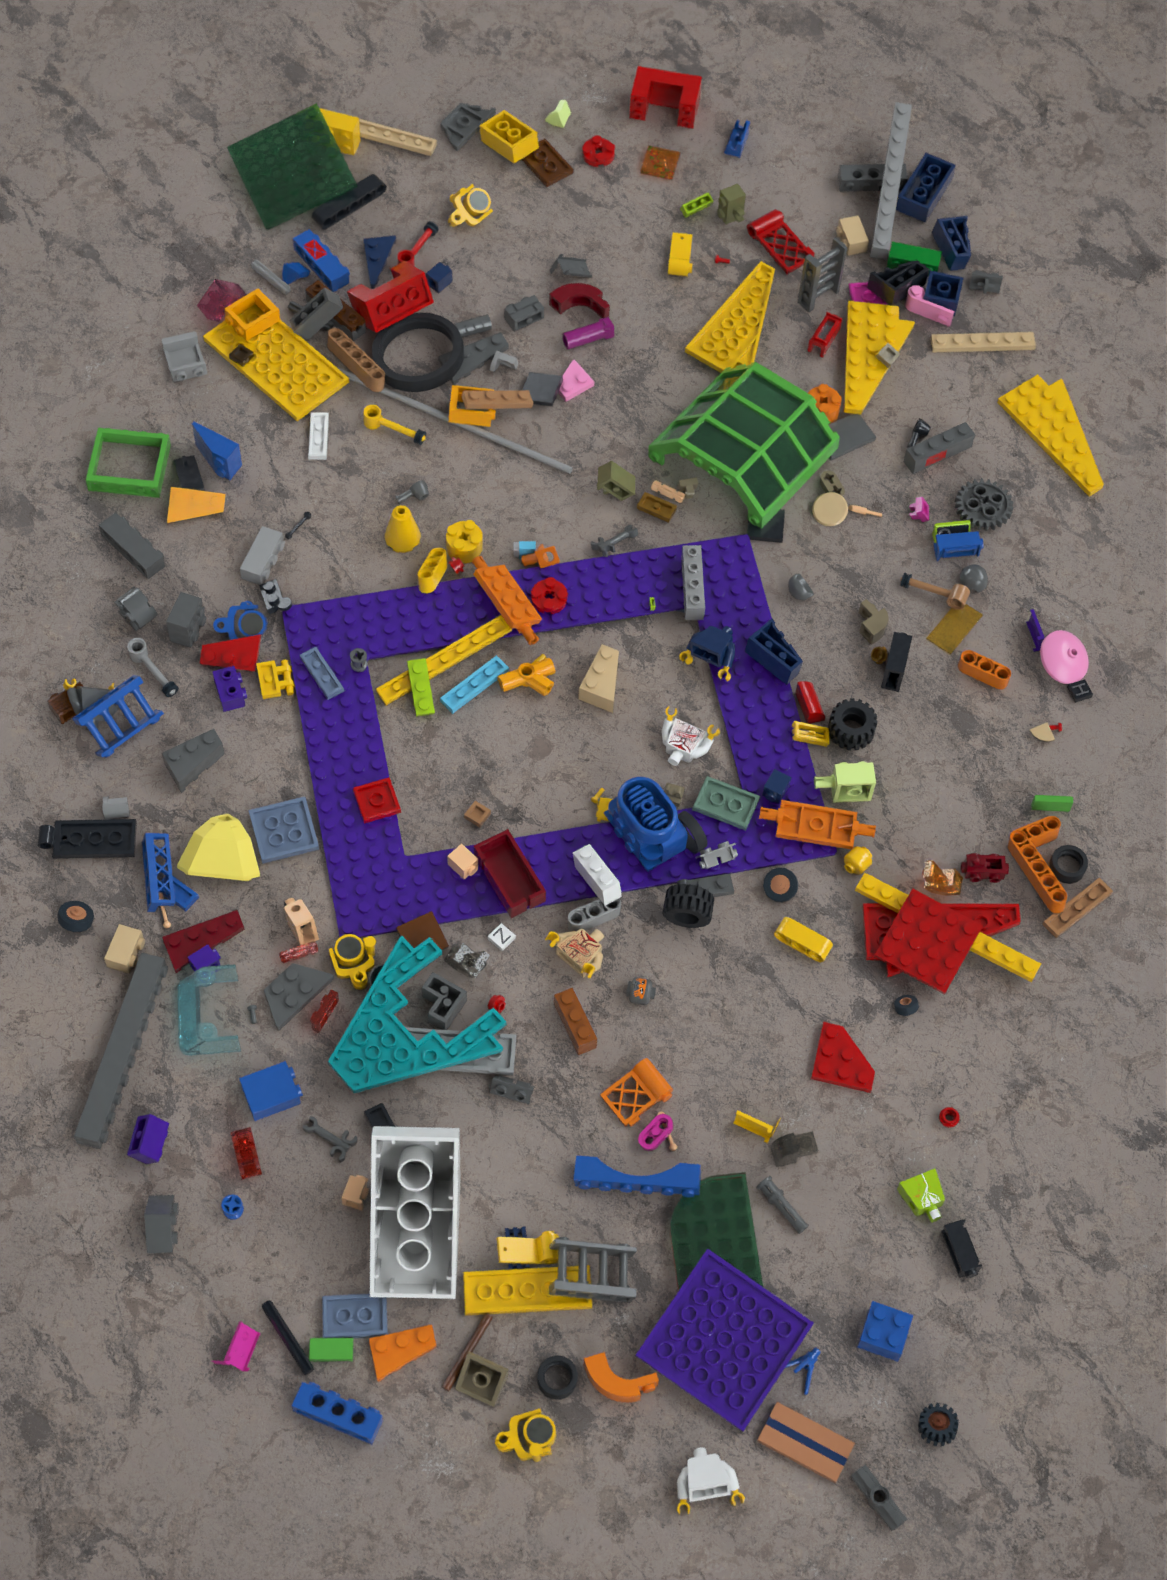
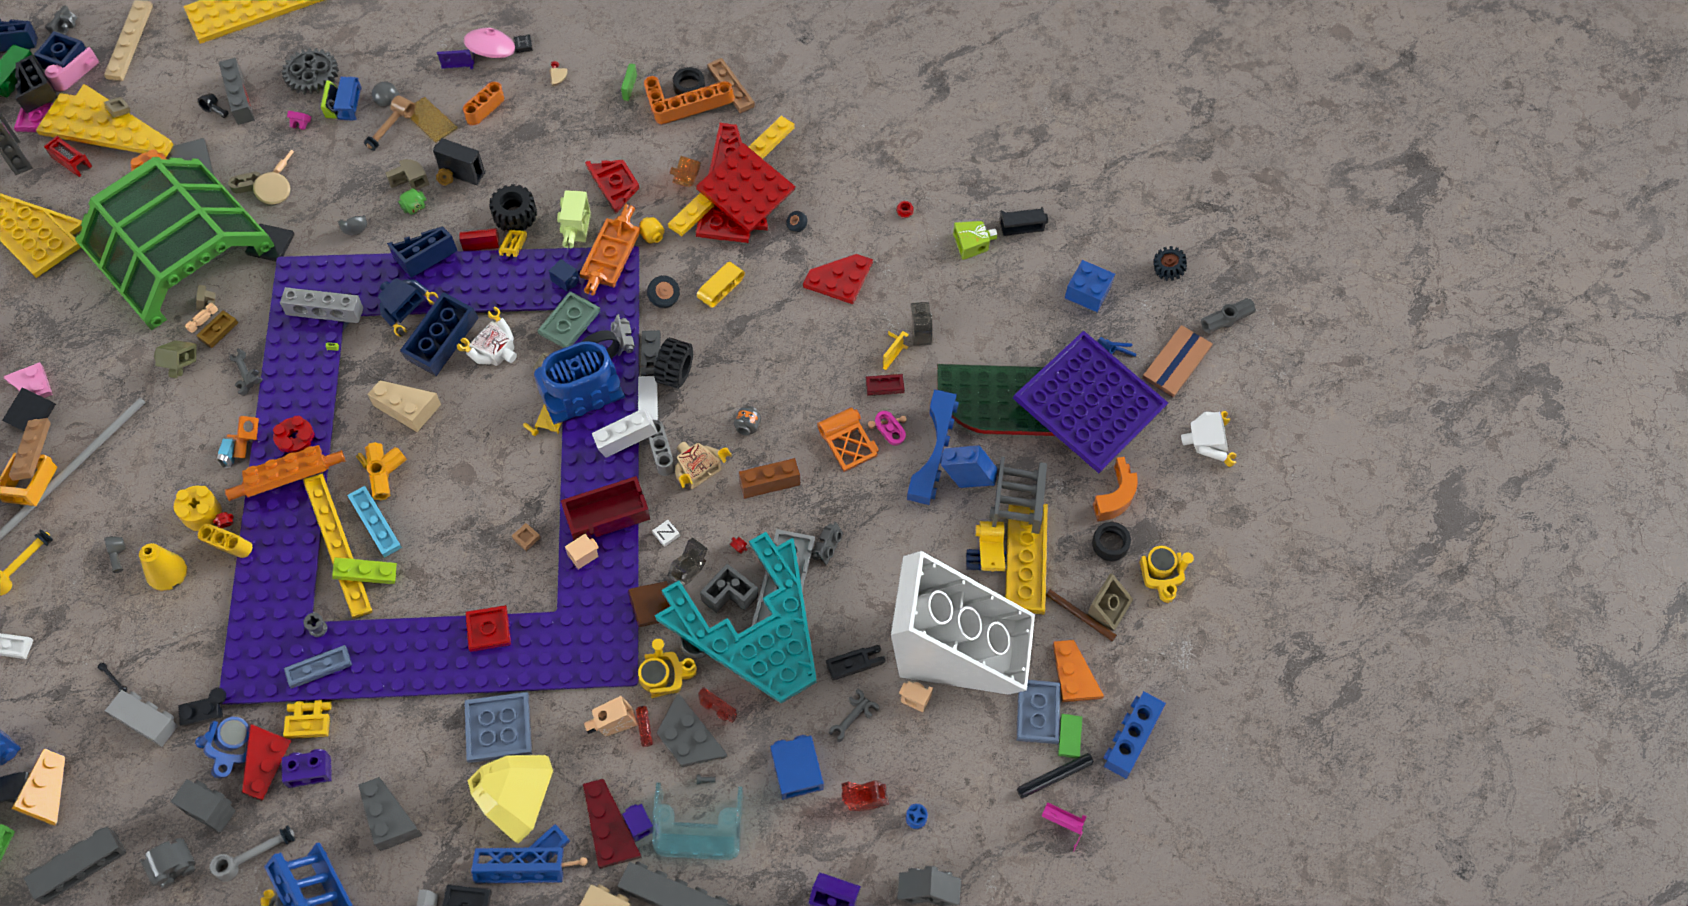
camera: 80 degrees left, 0 degrees up
(612, 1211) = (969, 466): none -> blue brick
(644, 895) = (648, 395): none -> white tile
(683, 689) = (439, 334): none -> dark blue brick
(710, 1122) = (884, 384): none -> dark red plate
(774, 1197) = (962, 345): dark grey pin -> none
(841, 632) = (412, 201): none -> bright green head
(913, 814) = (614, 181): none -> red wing
(984, 867) = (679, 140): dark red brick -> none

